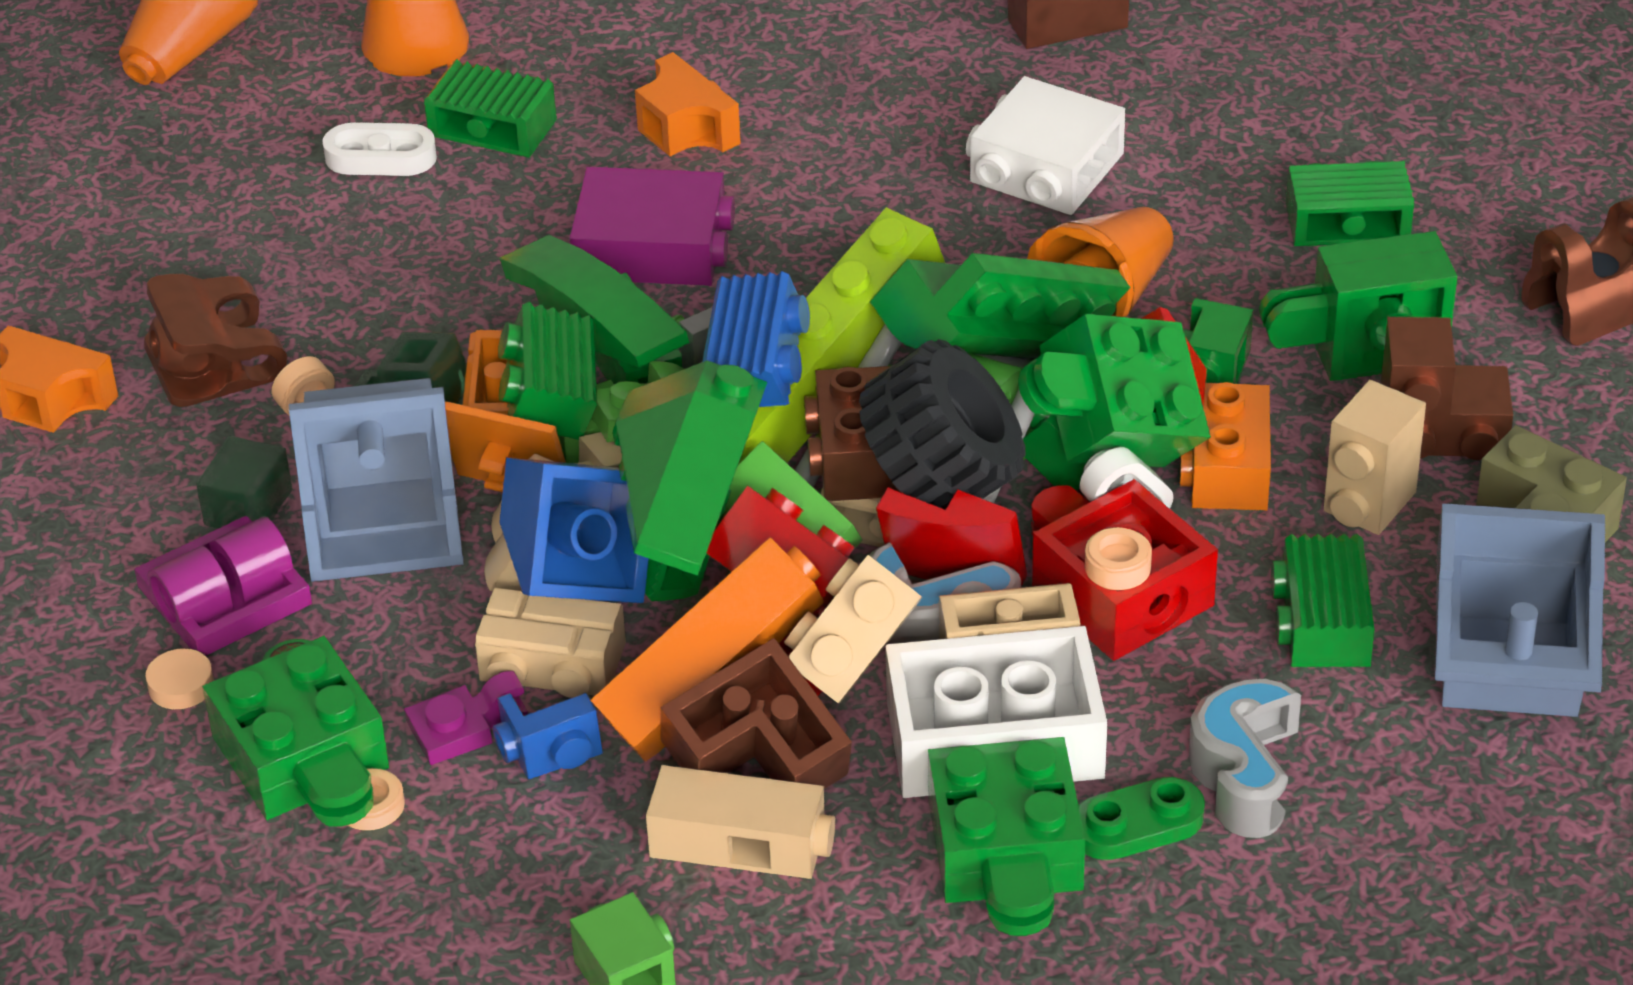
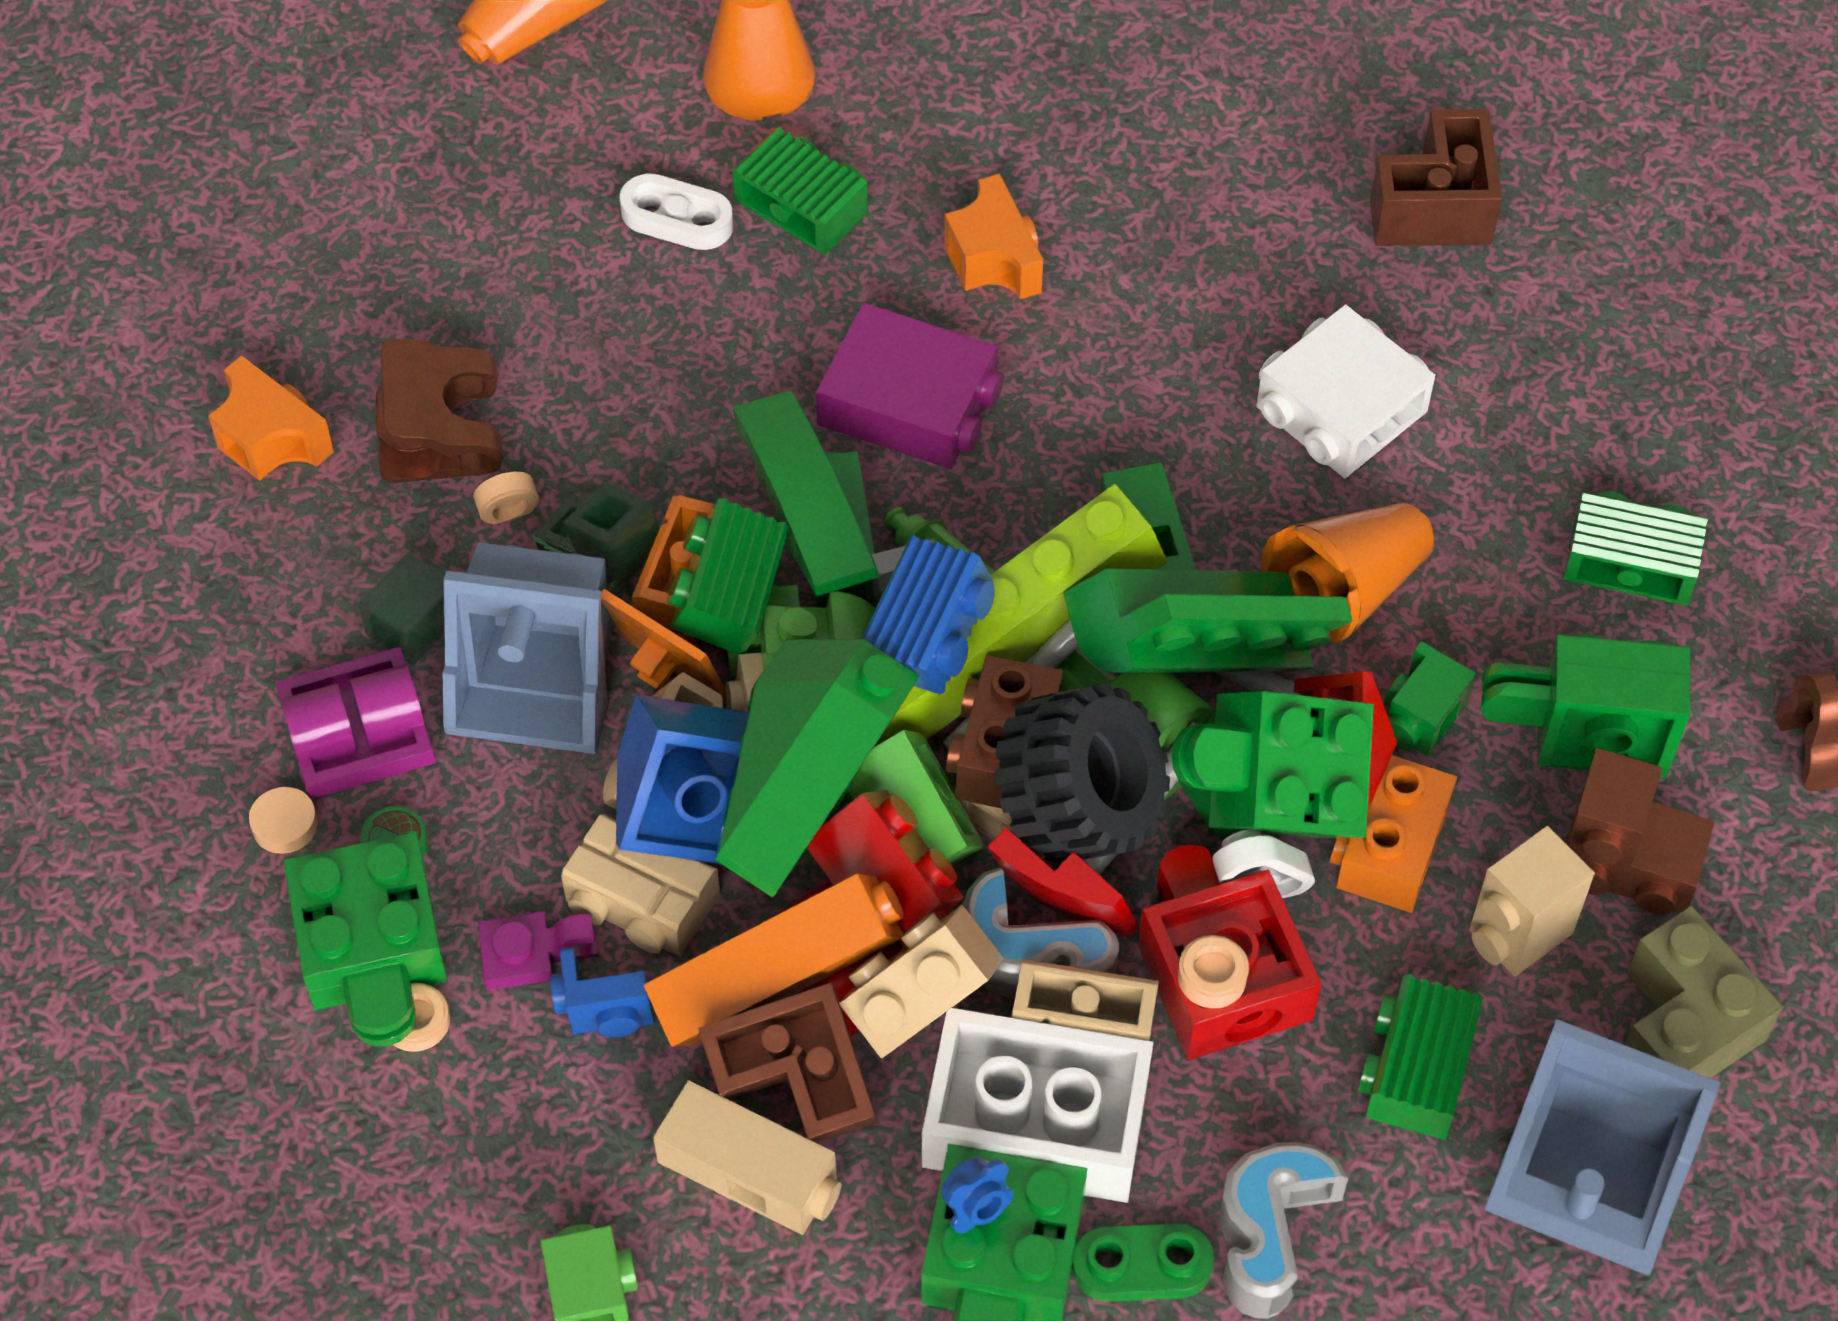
camera: 15 degrees right, 15 degrees up
(975, 761) = (976, 1193): none -> blue plate

